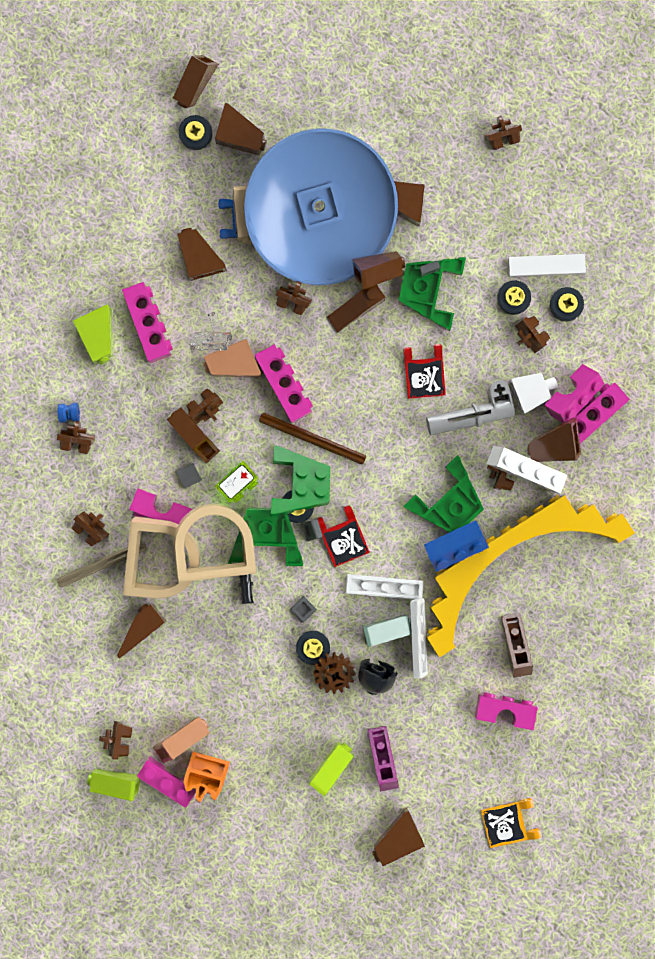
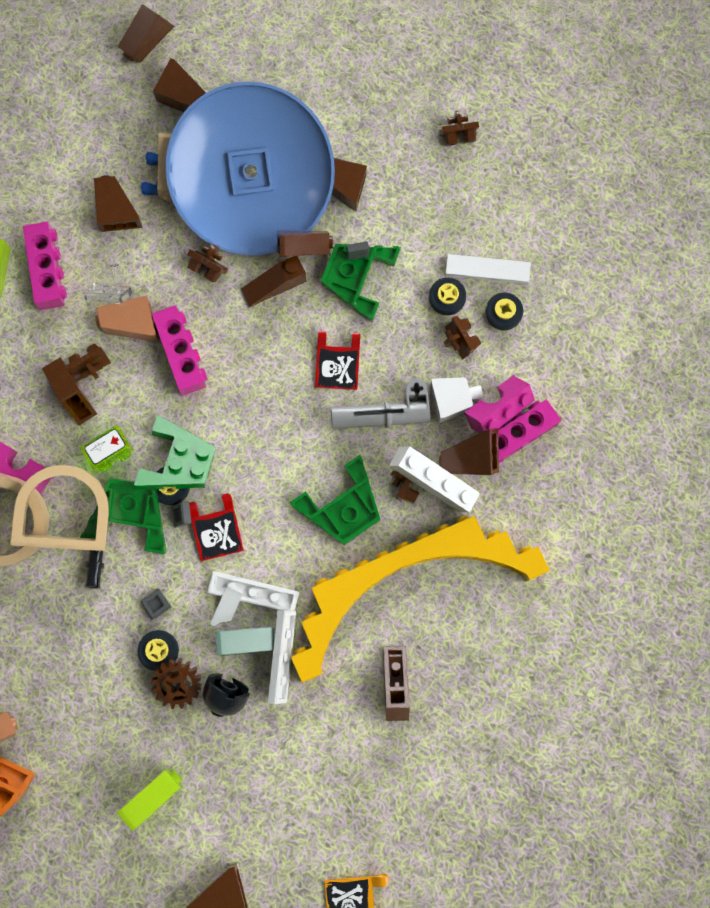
camera: 10 degrees right, 10 degrees down
(189, 475) = (56, 435): dark grey tile -> none
(197, 139) = (143, 85): black wheel -> none
(312, 438) = (201, 414): reddish brown axle -> none
(363, 602) = (227, 606): none -> white sticker
(383, 758) = (216, 798): magenta slope -> none
(456, 546) = (341, 555): blue brick -> none
(523, 712) = (392, 764): dark pink arch -> none

